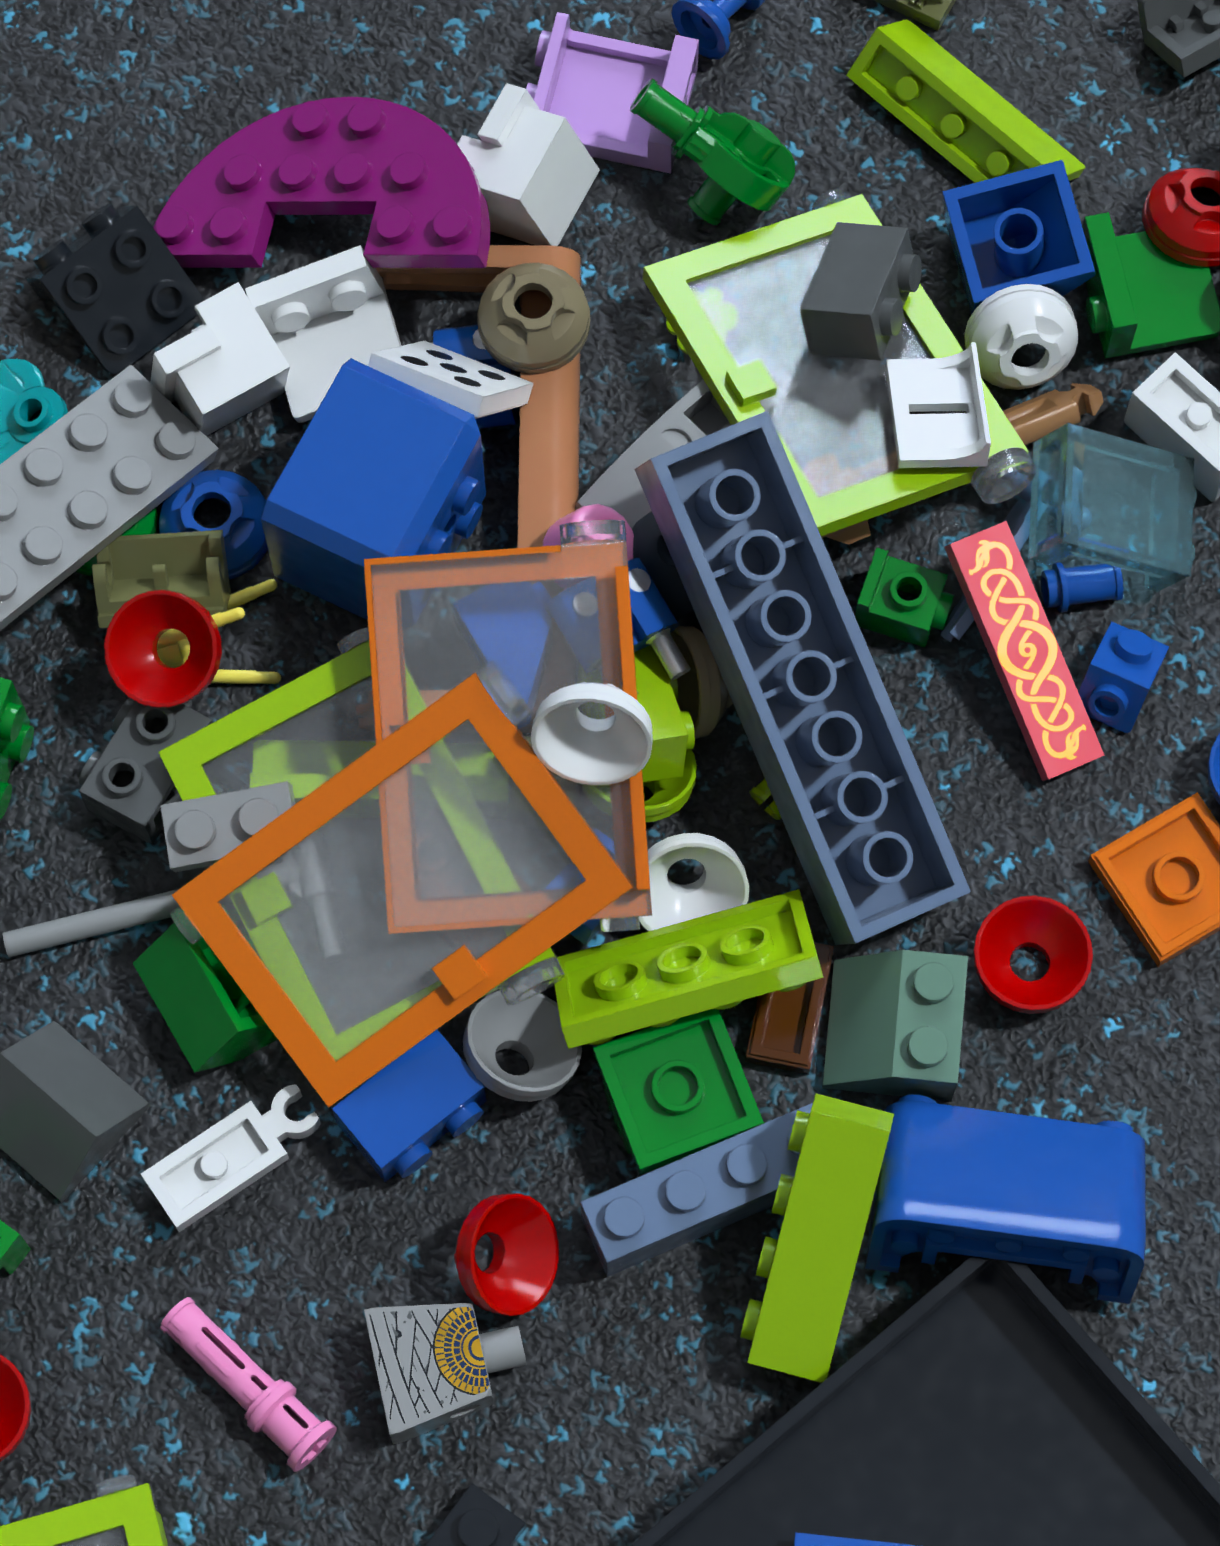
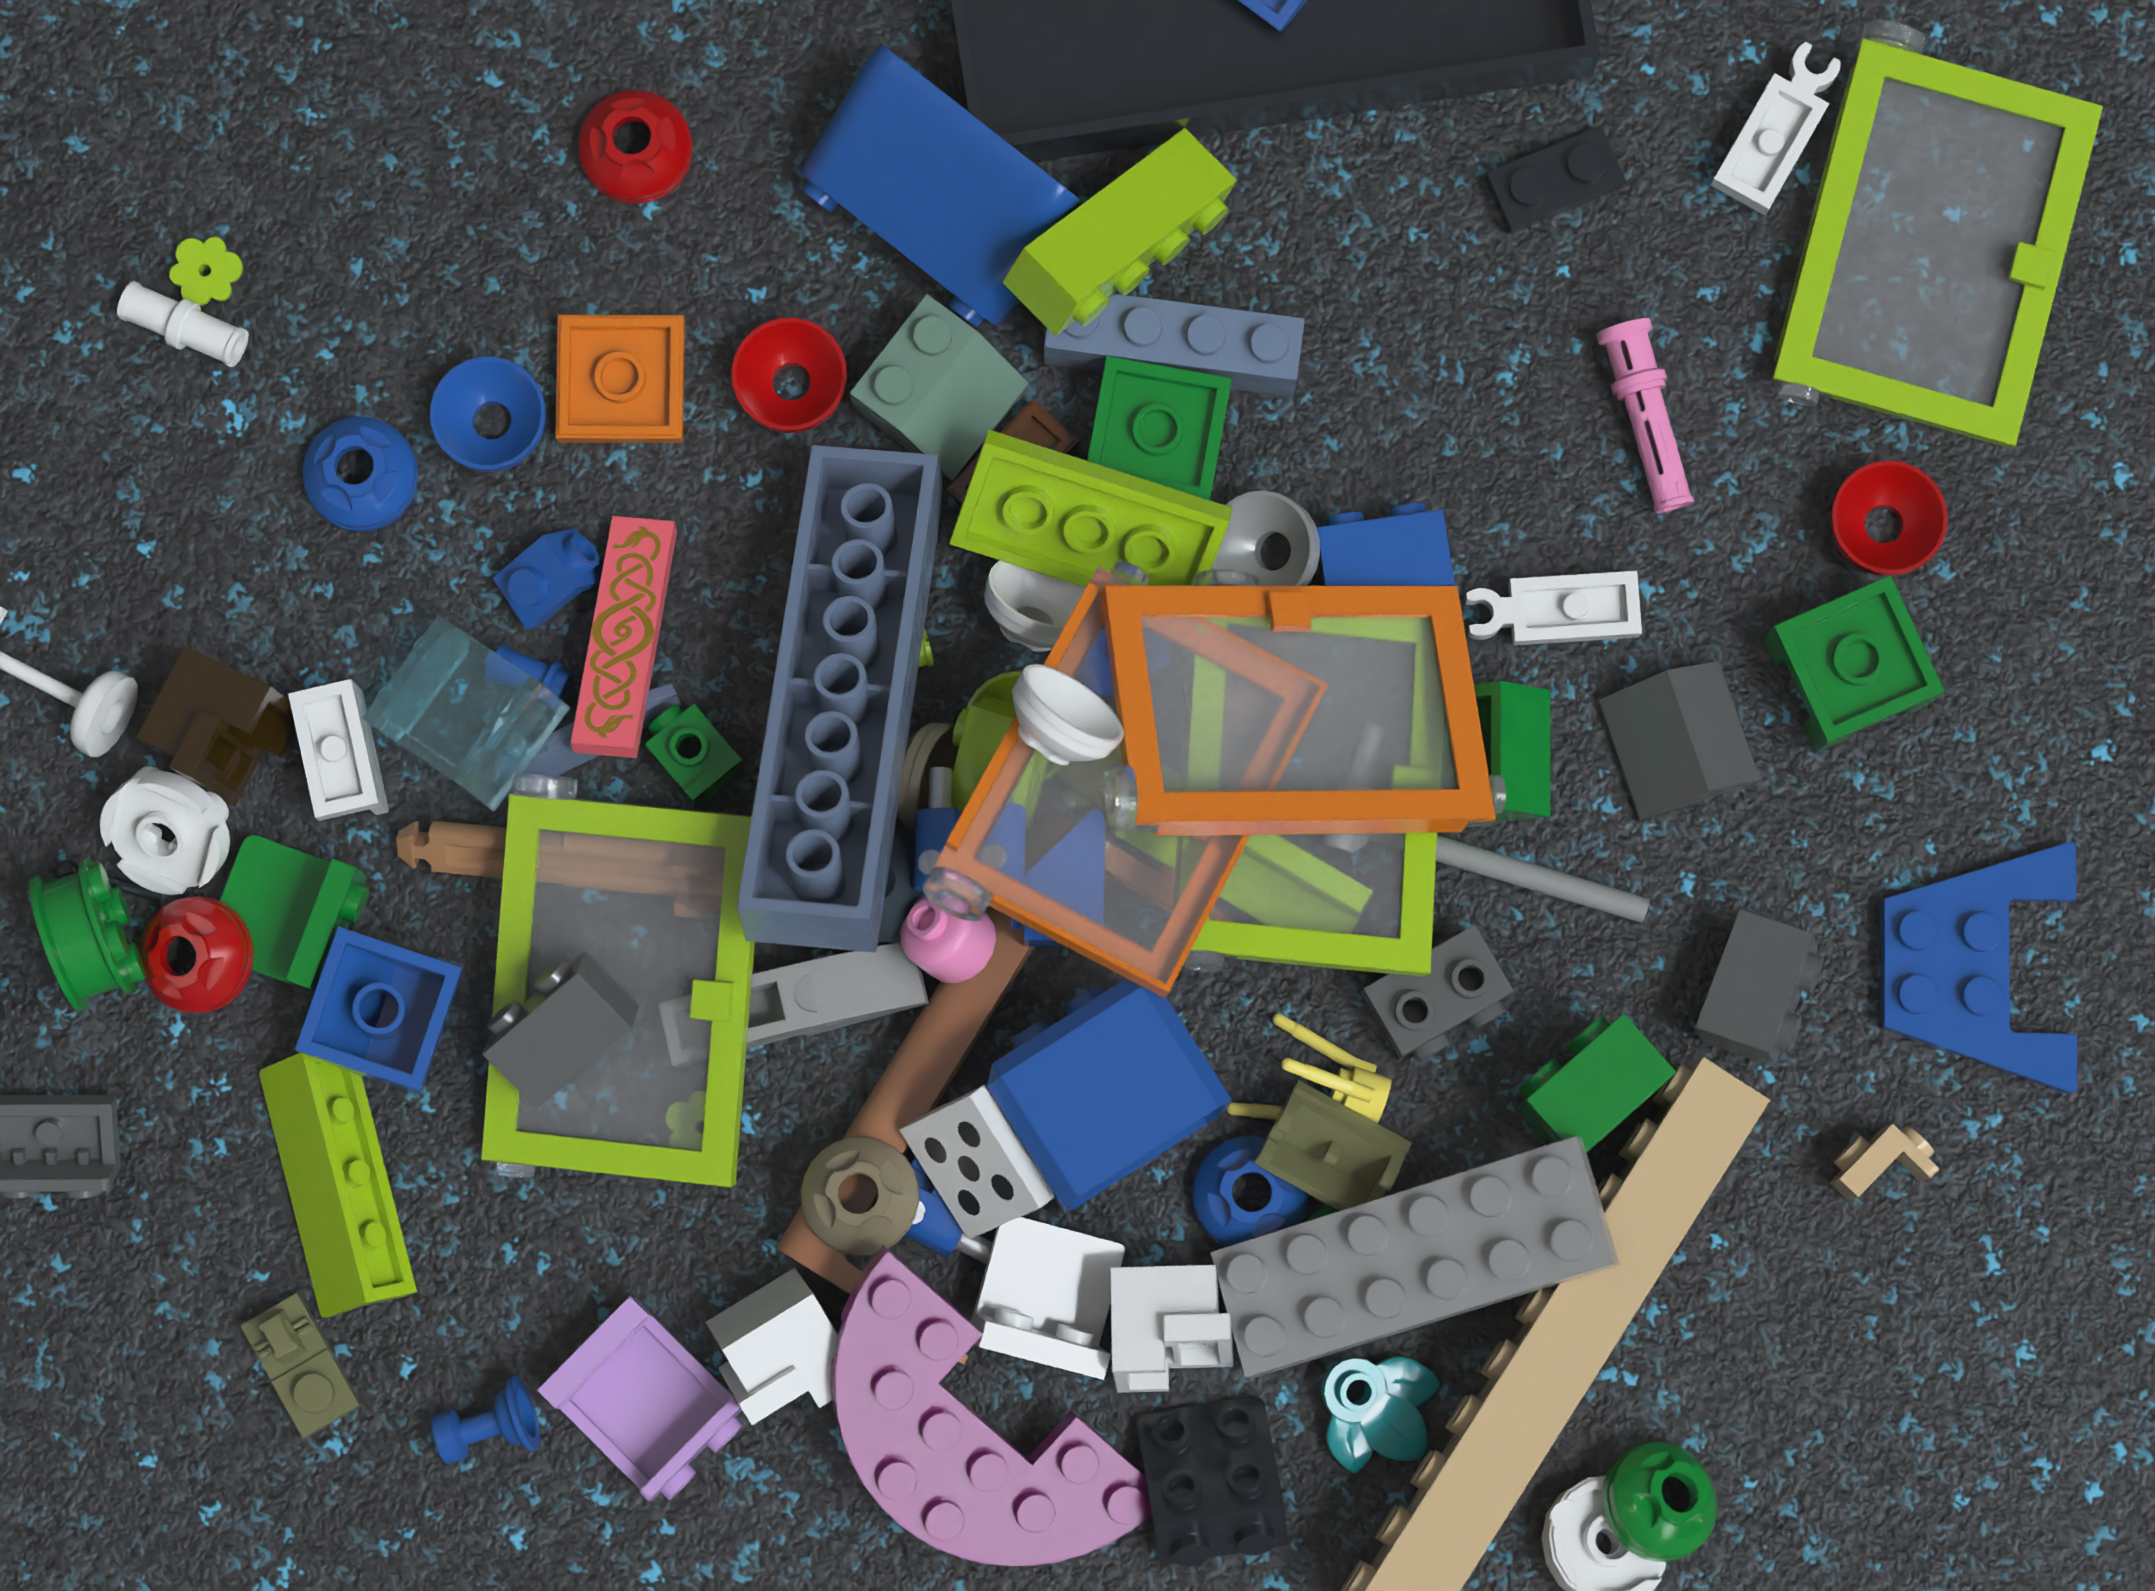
camera: 150 degrees left, 10 degrees up
(133, 653) = (1394, 1046): red piece -> none
(212, 826) = (1410, 868): light grey plate -> none
(436, 1364) = (1486, 336): light grey torso -> none
(522, 1258) = (1374, 376): red piece -> none
(734, 152) = (580, 1253): green pin -> none
(934, 386) = (551, 897): white piece -> none
(1018, 318) = (436, 919): white piece -> none

